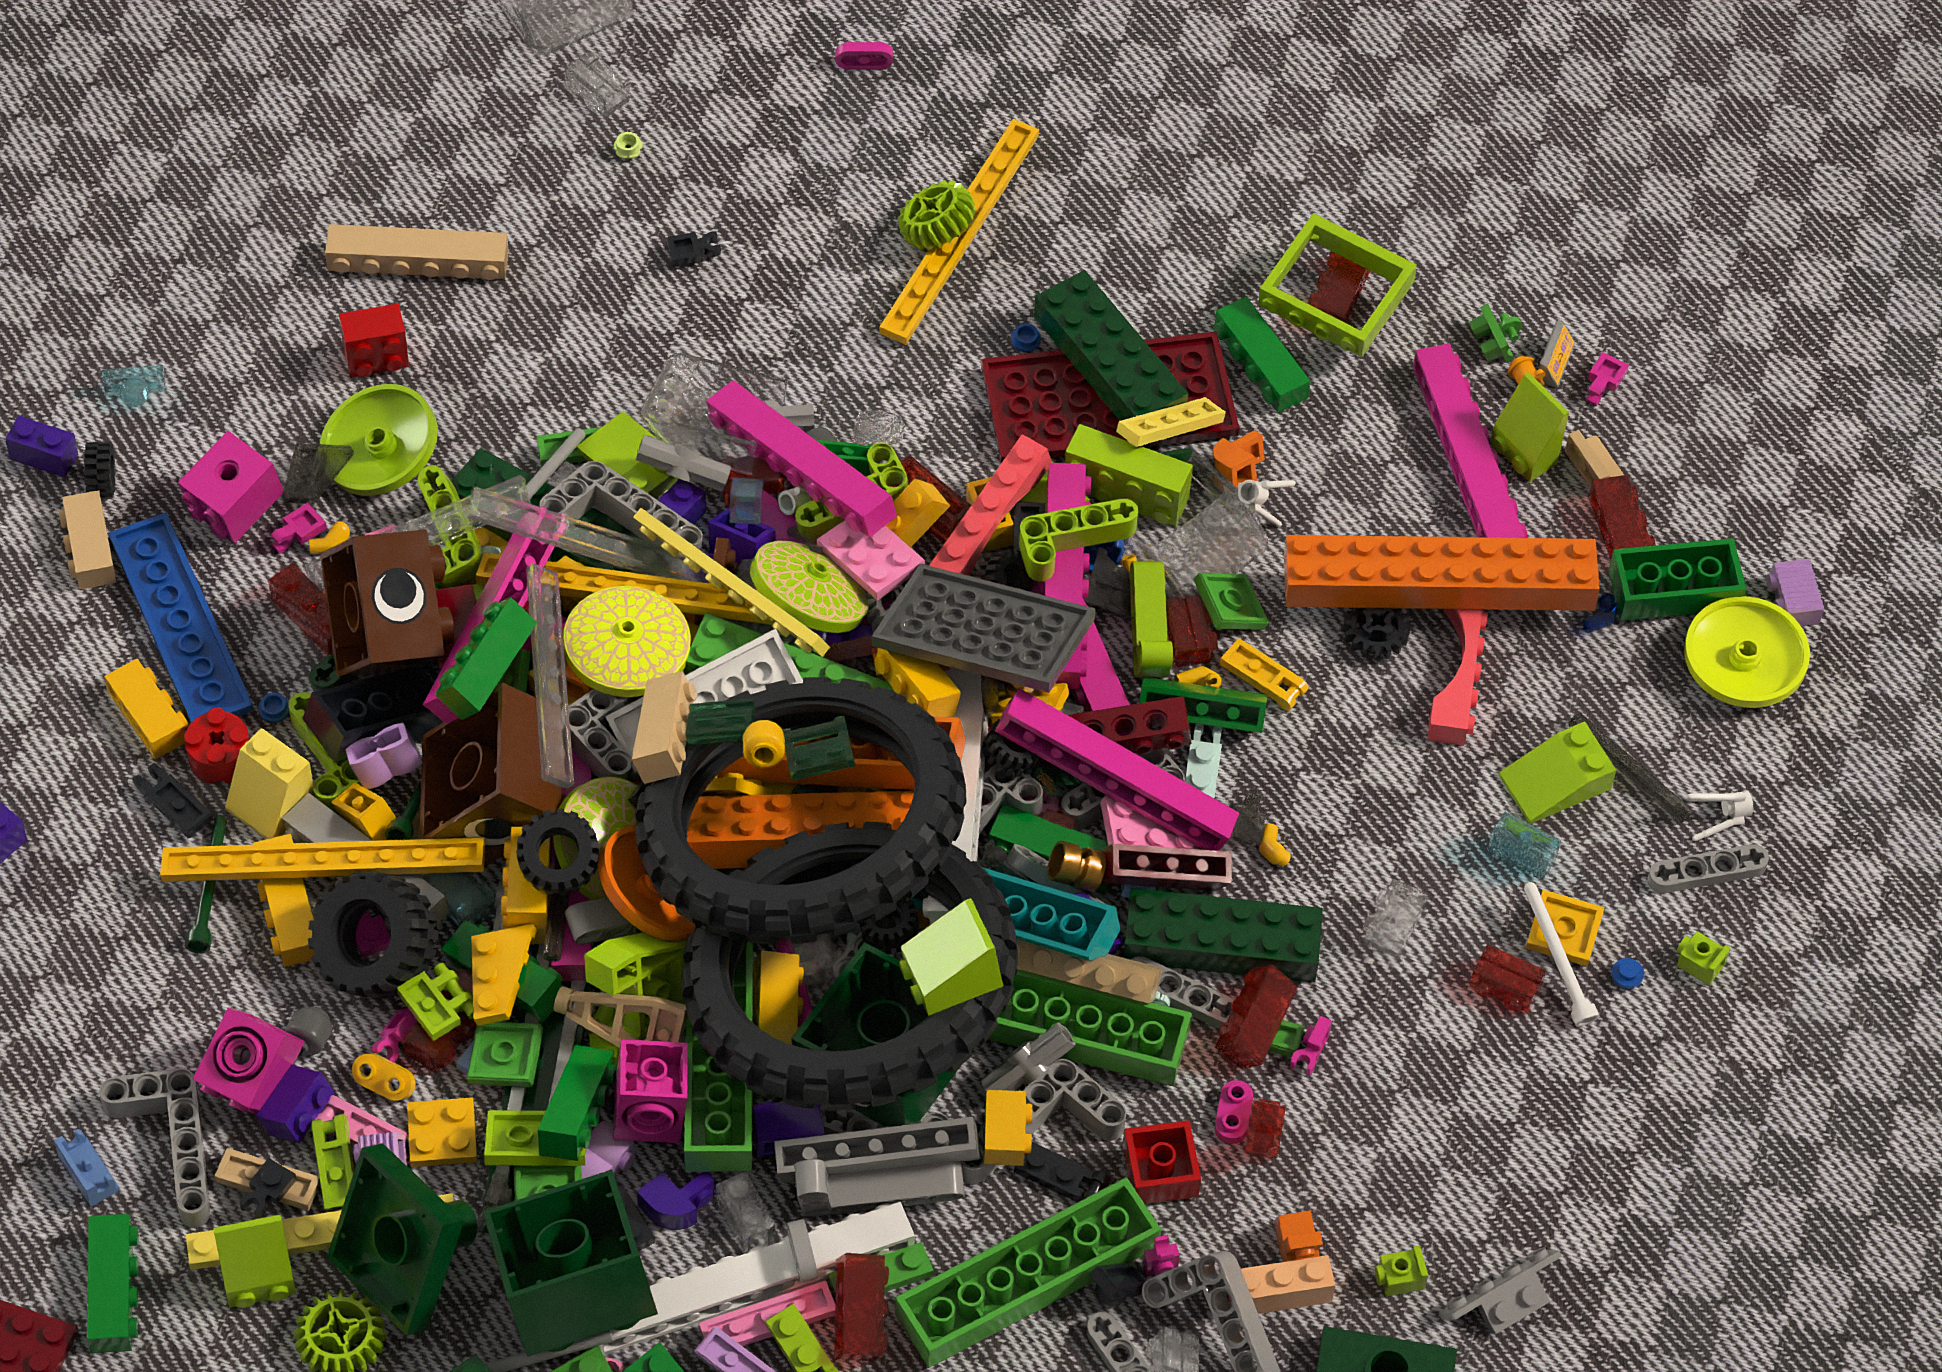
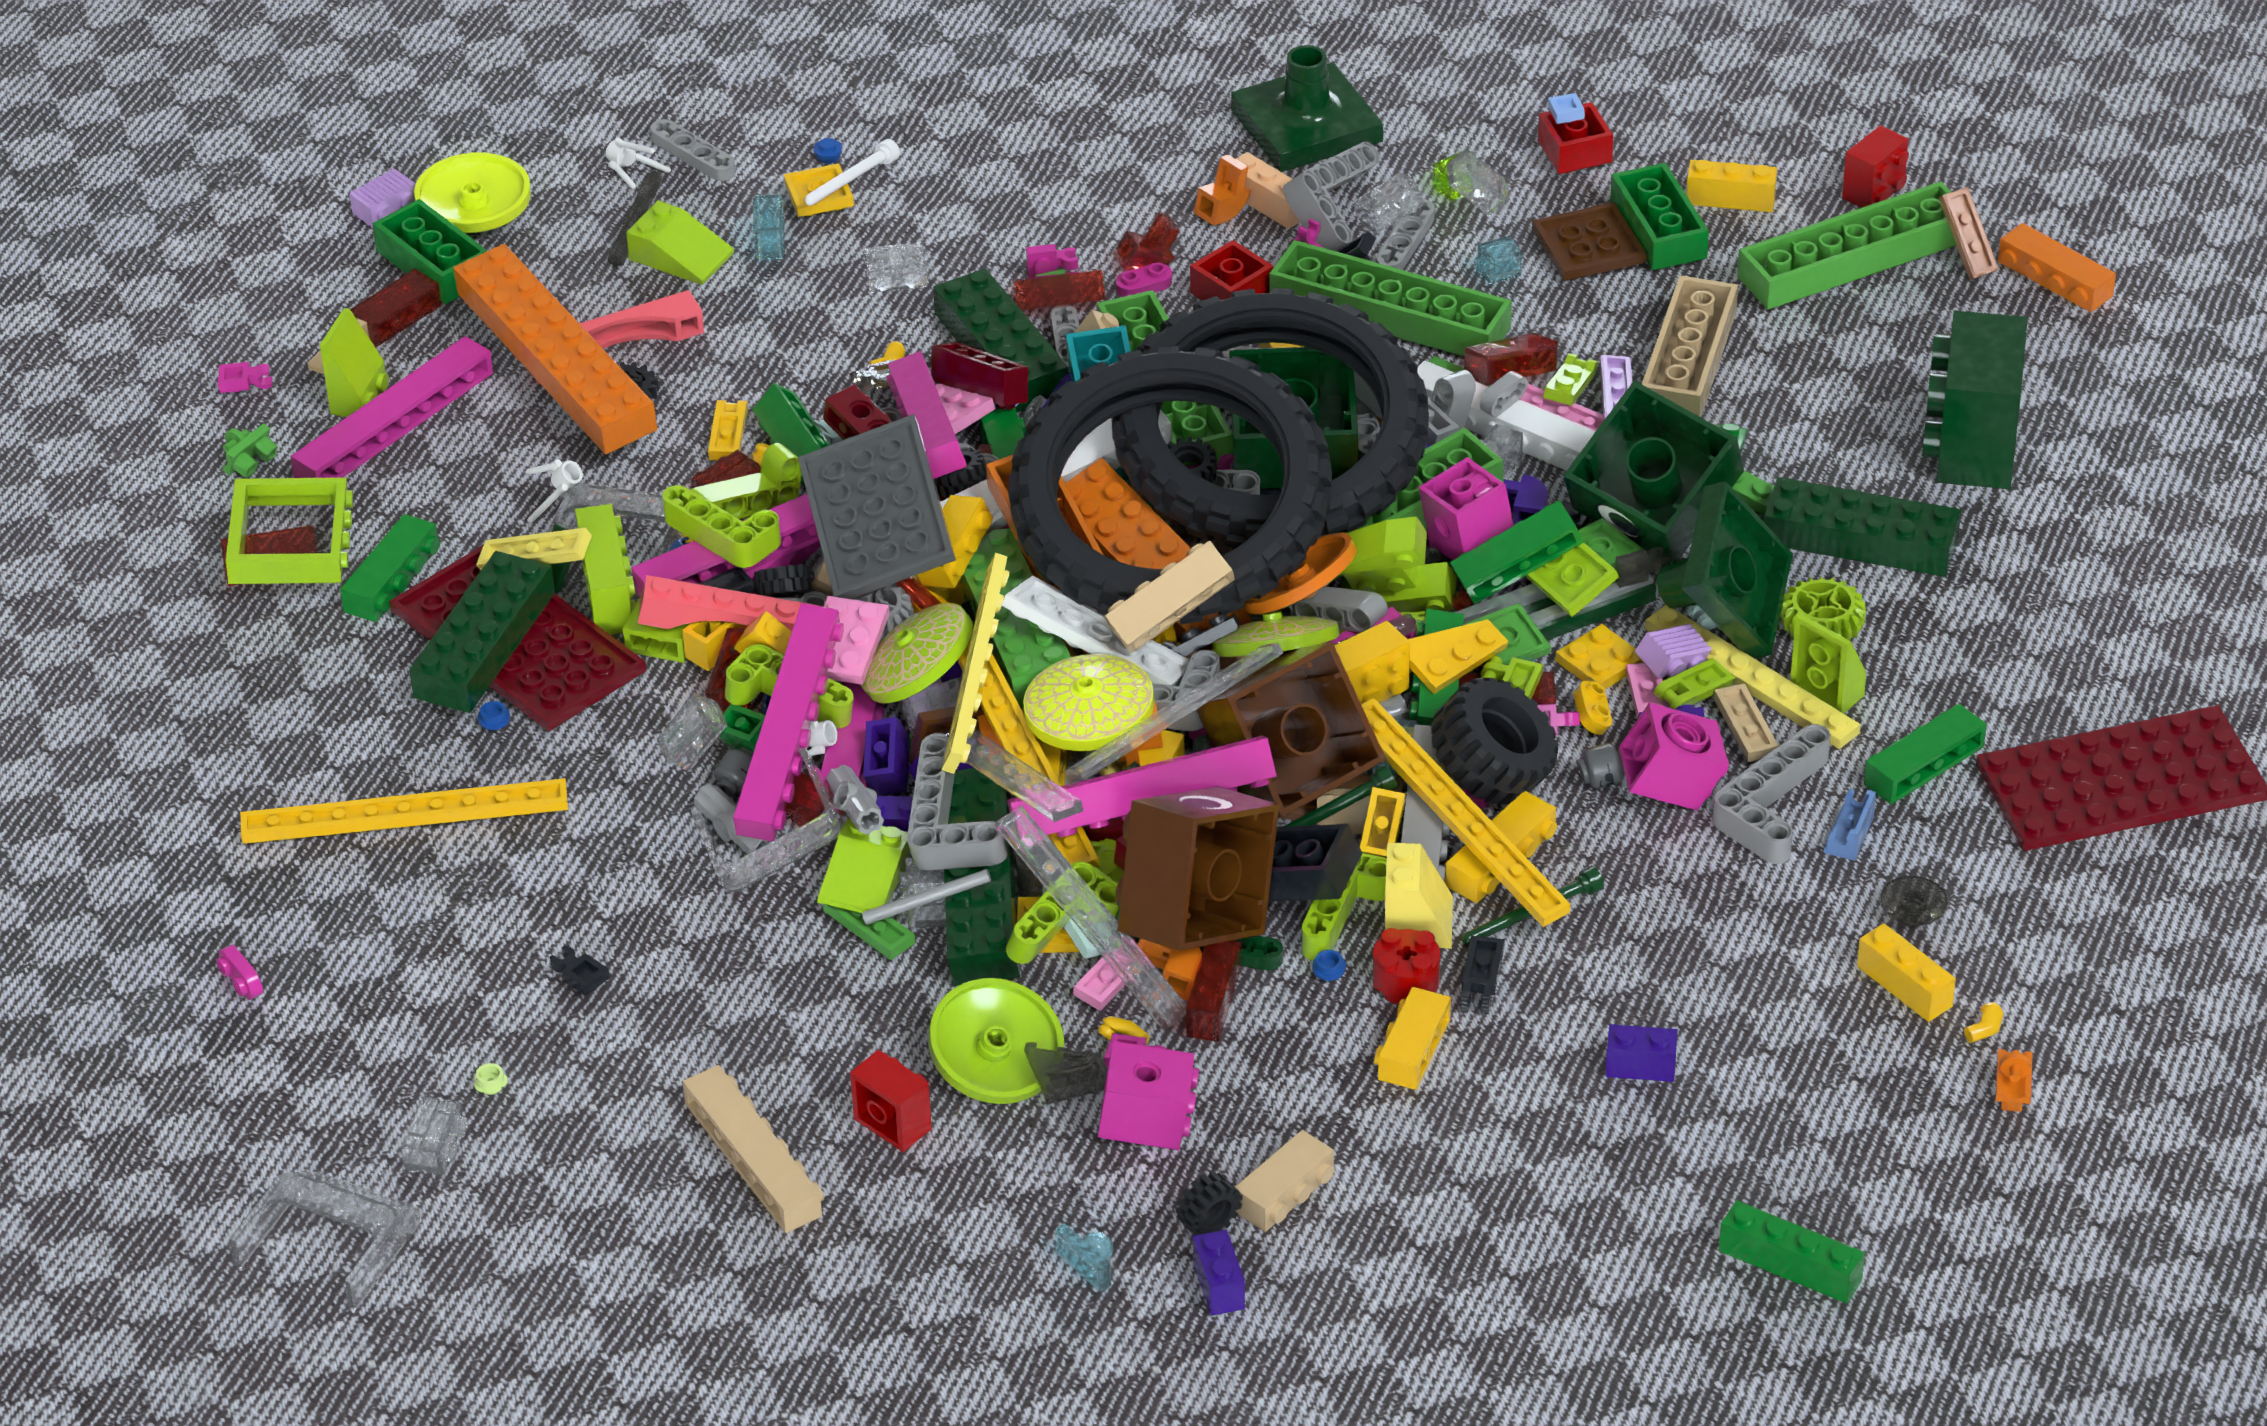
camera: 120 degrees left, 15 degrees down
(179, 618) = (1304, 1072): blue plate -> none
(268, 1184) = (1755, 706): black plate -> none
(384, 756) = (1320, 807): lavender brick -> none
(485, 657) = (1207, 733): green brick -> none
(554, 824) = (1339, 610): black tyre -> none
(666, 1016) = (1434, 571): tan plate -> none
(719, 721) = (1137, 553): clear green plate -> none
(746, 500) = (854, 749): clear light blue brick -> none
(763, 744) = (1144, 502): yellow head -> none
(793, 532) = (870, 673): clear smoke hinge -> none
(821, 755) = (1125, 466): clear green plate -> none
(936, 215) = (398, 808): lime gear -> none
(951, 960) = (1242, 298): lime slope -> none
(1071, 864) = (1026, 398): pearl gold wheel -> none
(1231, 601) = (675, 468): bright green tile -> none
(1239, 458) = (533, 518): orange brick -> none
(1404, 1281) = (1192, 146): lime brick -> none
(1507, 979) = (895, 195): clear red brick -> none
(1507, 1297) = (1156, 99): light grey bracket -> none
(1523, 365) = (280, 415): light orange brick -> none
(1556, 354) = (240, 414): slope -> none
(1702, 957) = (779, 117): lime brick -> none

